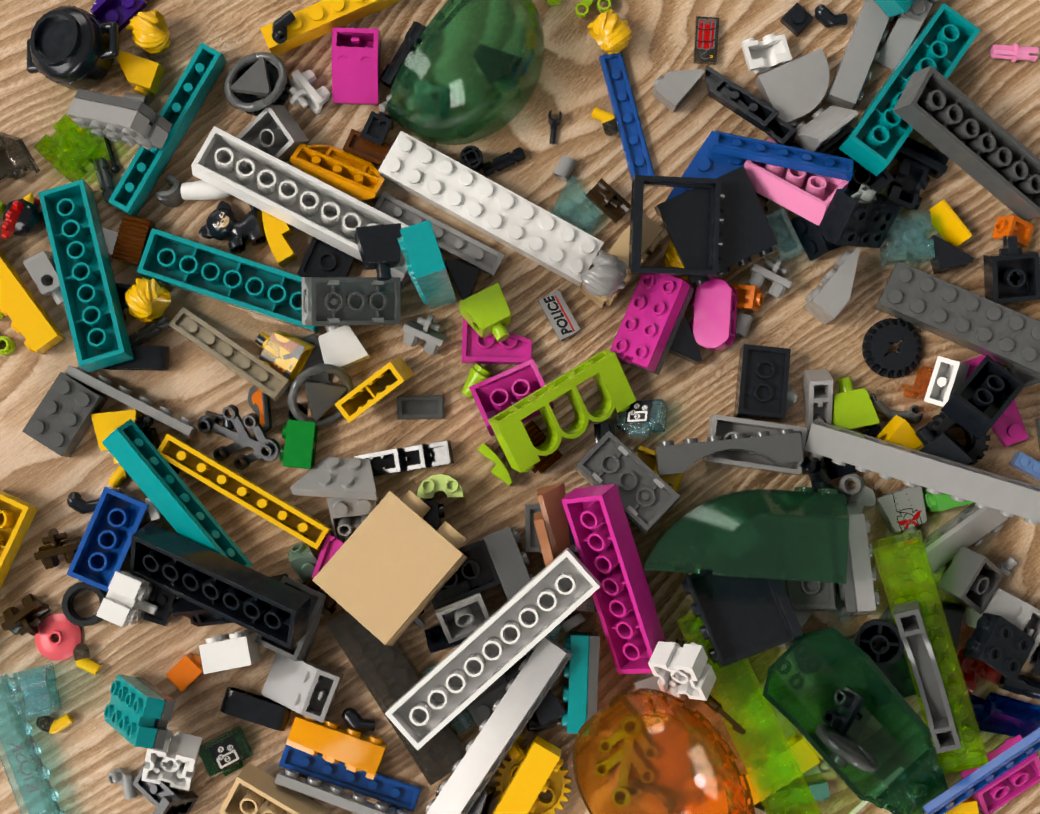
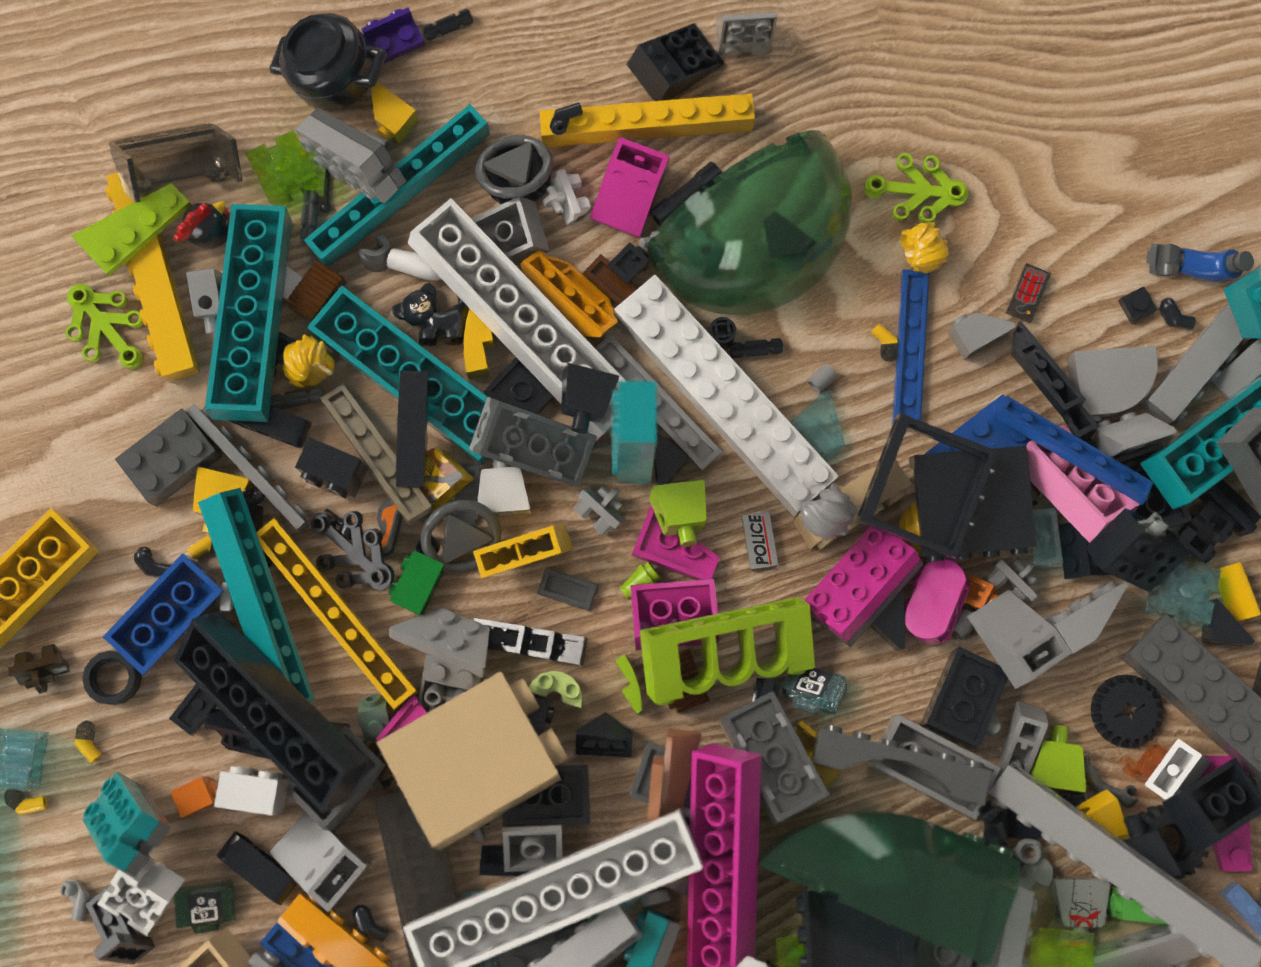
camera: 10 degrees right, 5 degrees down
(49, 553) = (92, 605): dark brown hips -> none
(68, 634) = (79, 705): coral dish -> none
(125, 599) = (158, 689): white brick -> none
(150, 31) = (418, 73): yellow hair -> none
(199, 377) = (331, 467): none -> black brick
(251, 324) = (412, 429): none -> black slope
(490, 513) = (604, 738): none -> black slope
(509, 560) = (607, 799): dark grey brick -> none
(554, 123) = (827, 326): black hand -> none
(608, 201) = (859, 432): dark brown hips -> none
(766, 54) = (1091, 331): white cylinder -> none
(788, 321) = (1018, 638): none -> light grey slope

